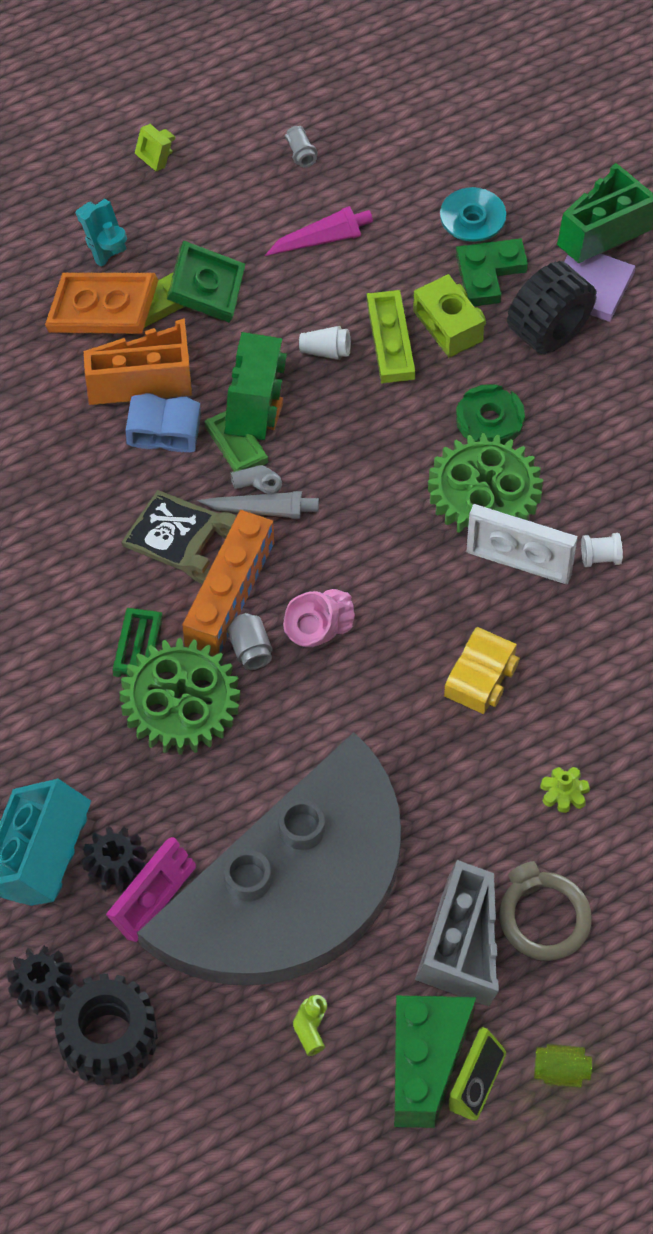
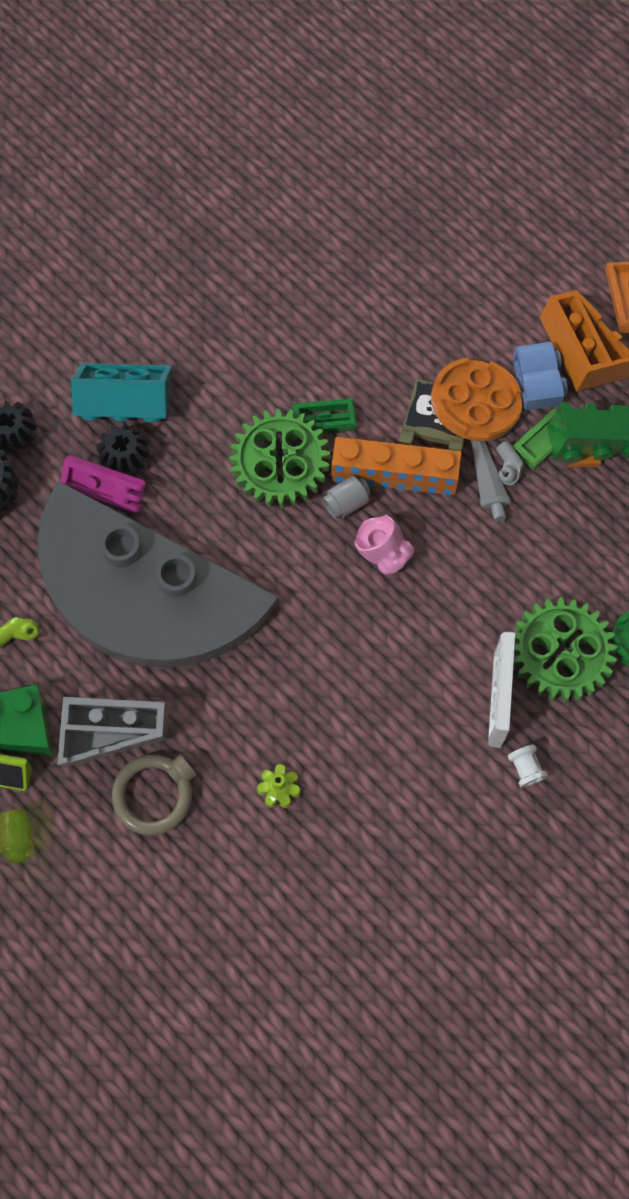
camera: 75 degrees right, 10 degrees up
(170, 488) = (476, 399): none -> orange tile
(481, 670) = (370, 688): yellow brick -> none

